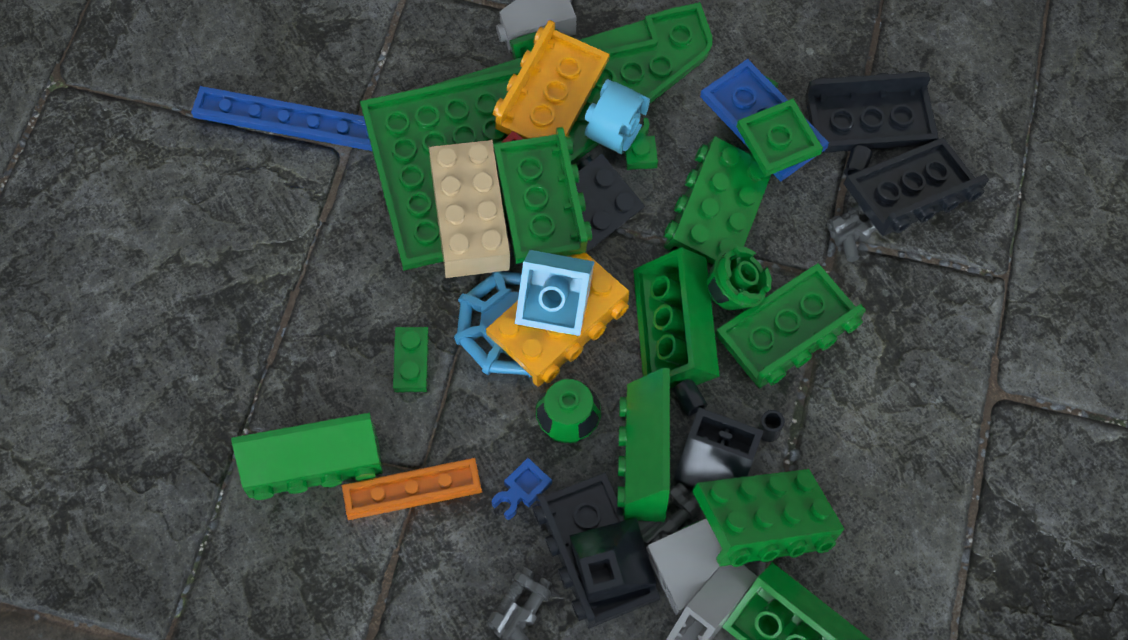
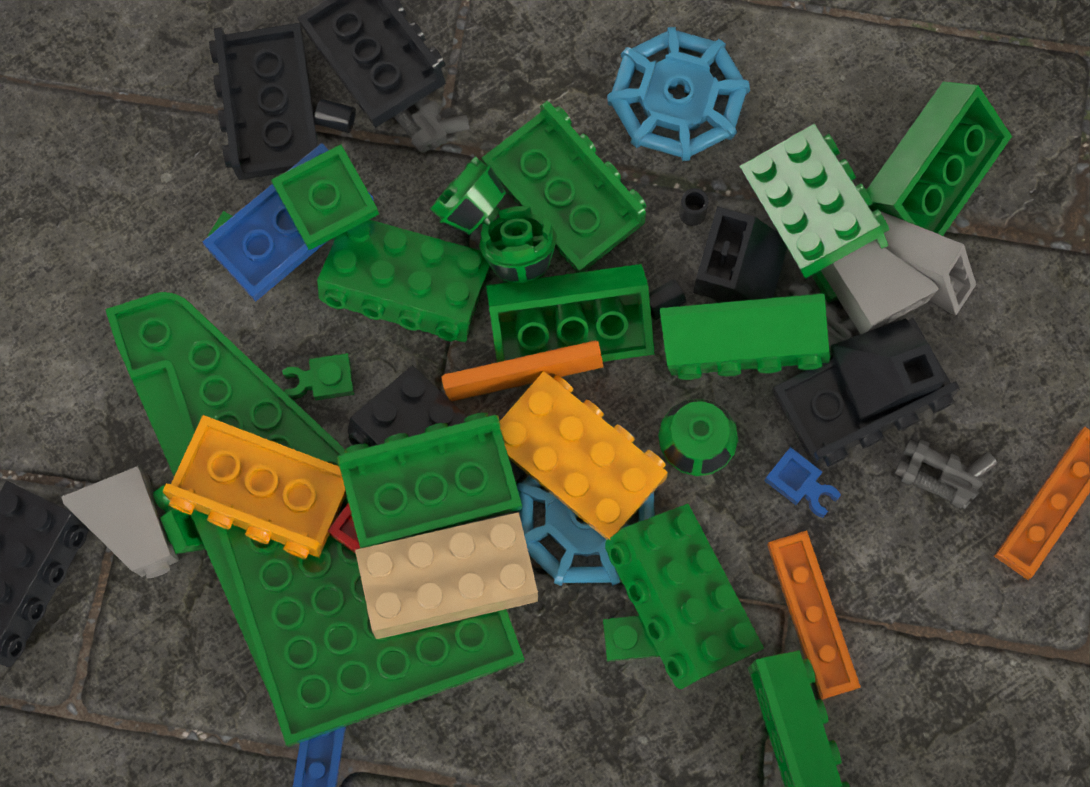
camera: 90 degrees left, 10 degrees up
(437, 384) = (682, 595): none -> green bracket
(554, 292) = (564, 452): medium azure slope -> none
(616, 116) = (304, 397): medium azure brick -> none
(632, 280) = (522, 370): none -> orange tile
(781, 248) = (470, 198): none -> green cone
(877, 444) = (681, 113): none -> dark azure plate

